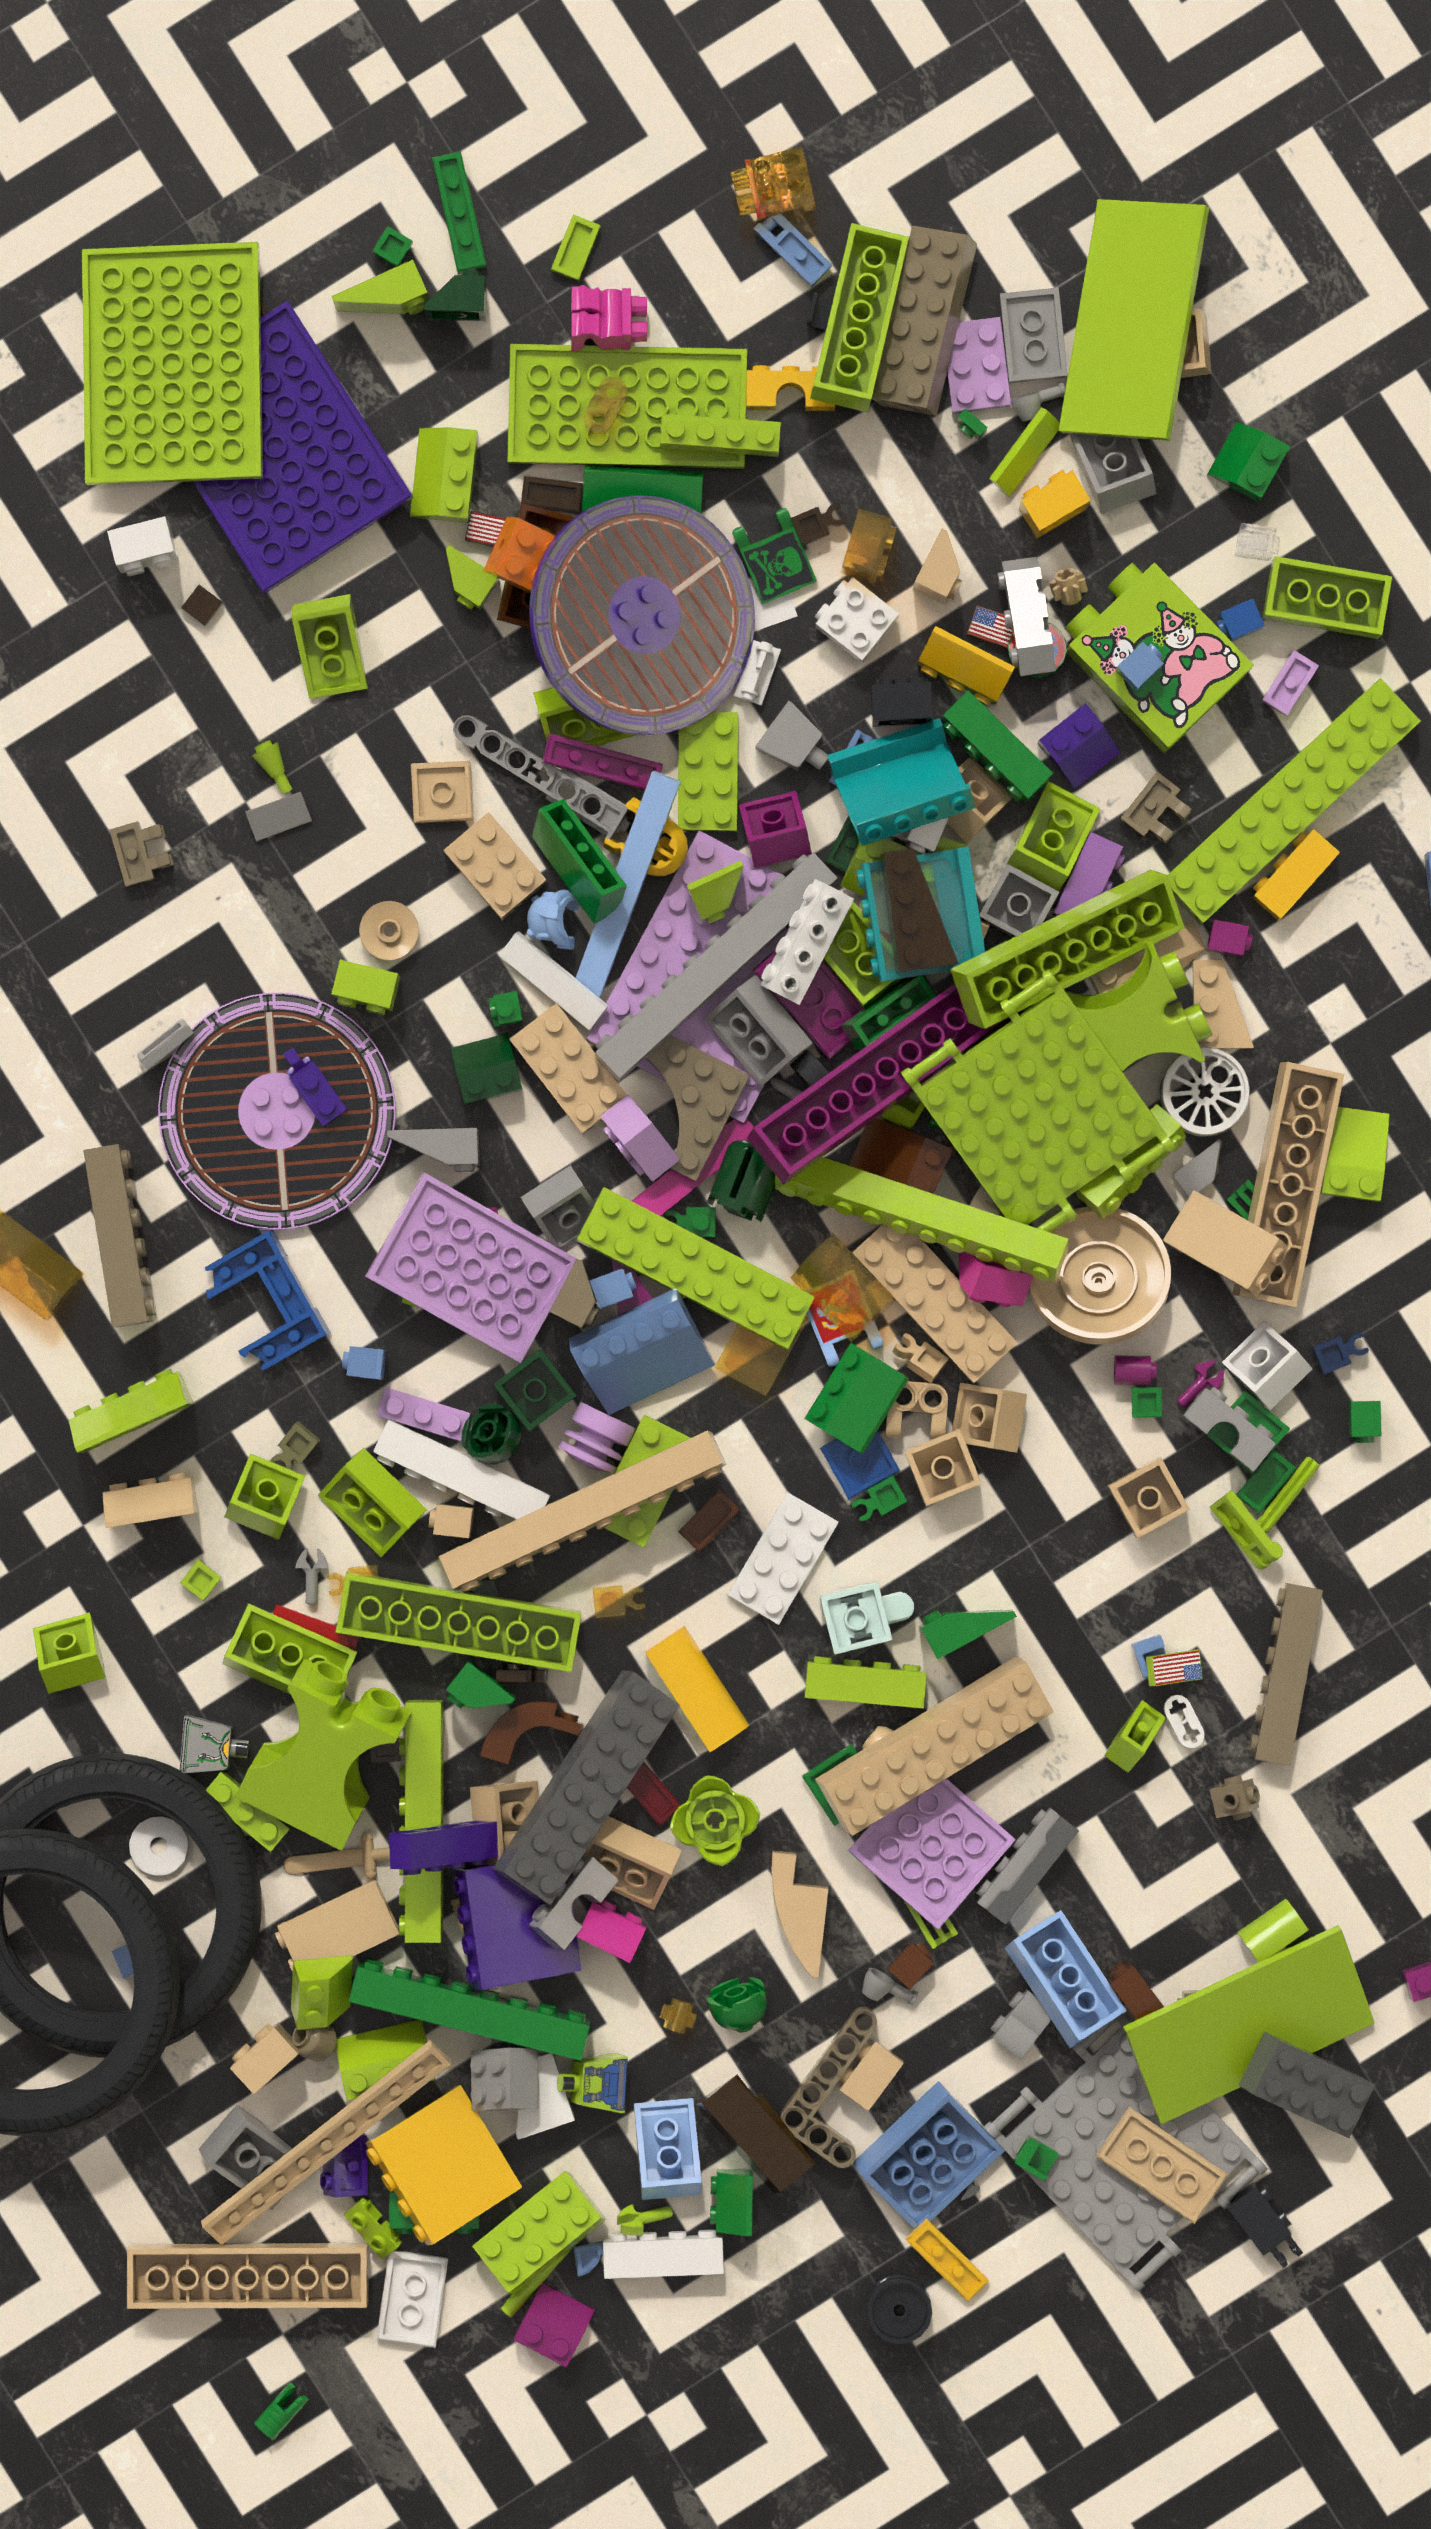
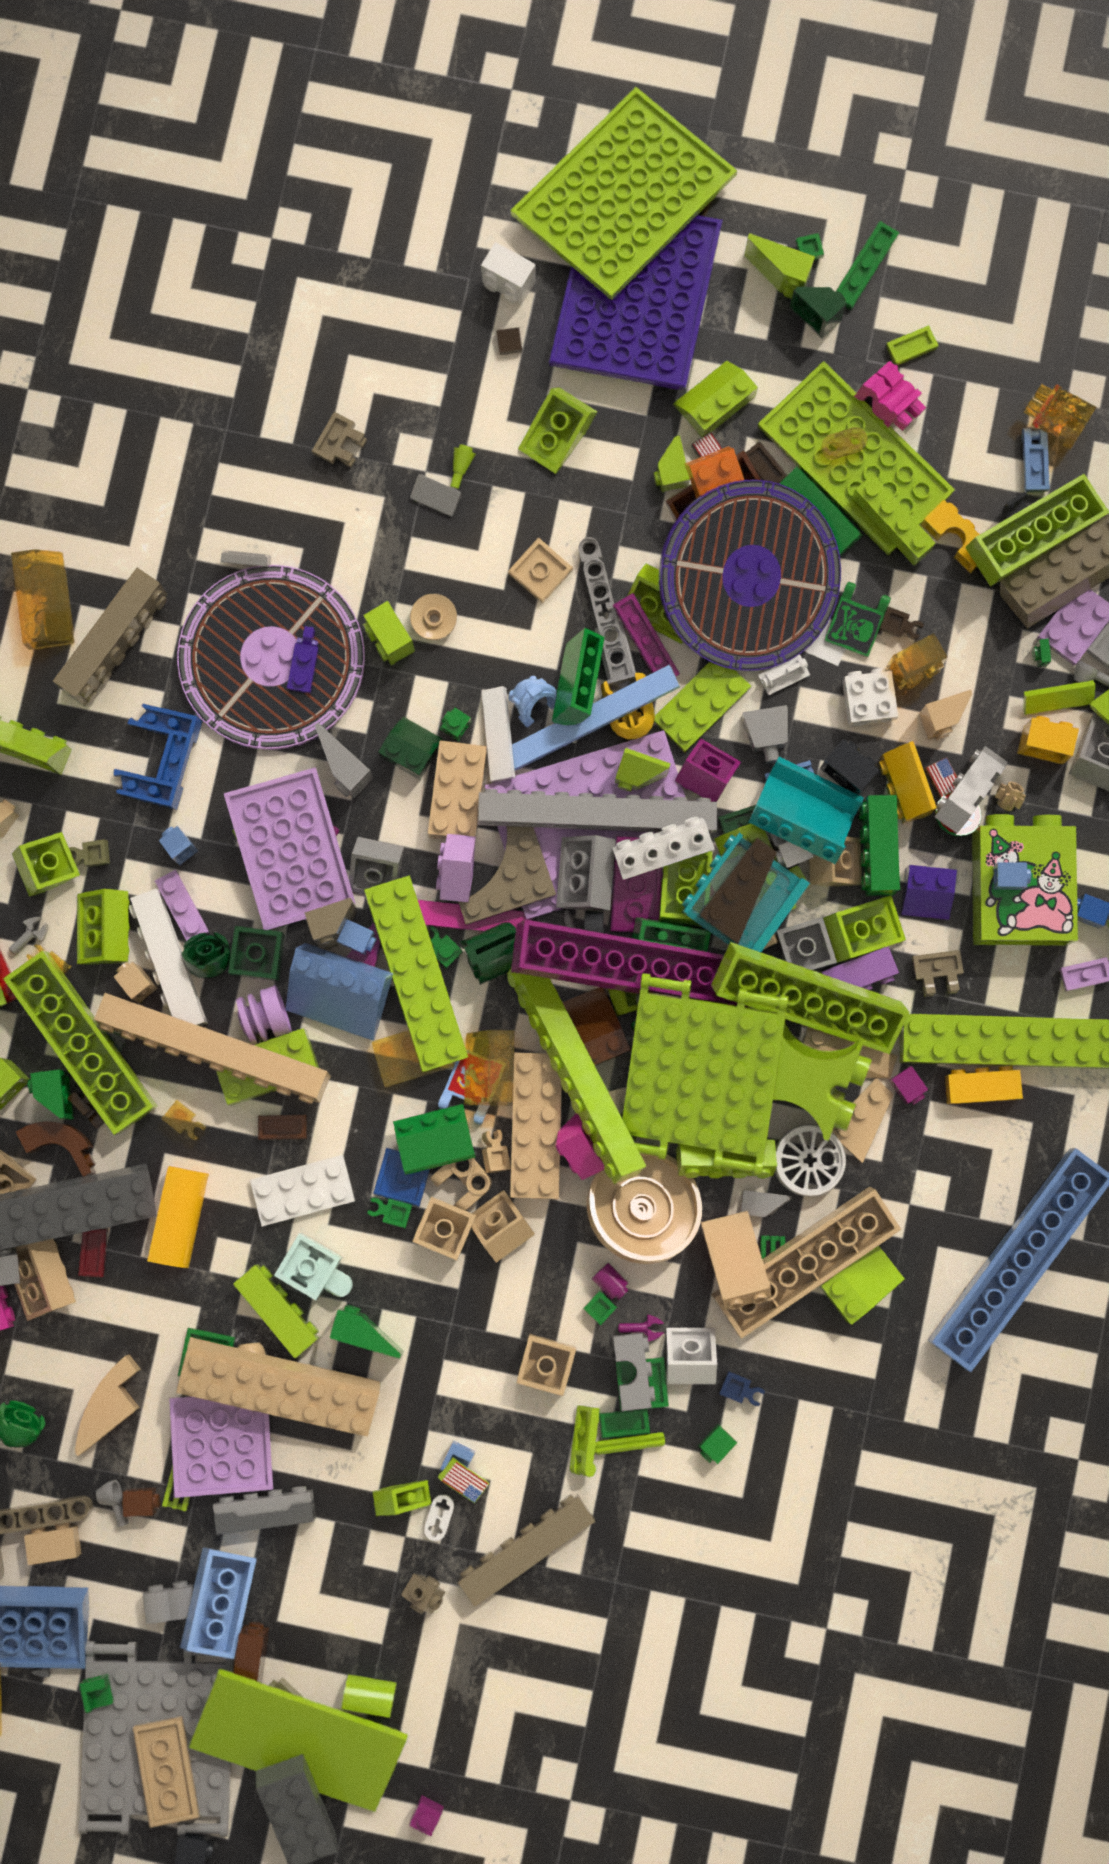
camera: 45 degrees right, 5 degrees down
(495, 866) = (528, 638): tan brick -> none
(721, 1843) = (98, 1317): lime brick -> none

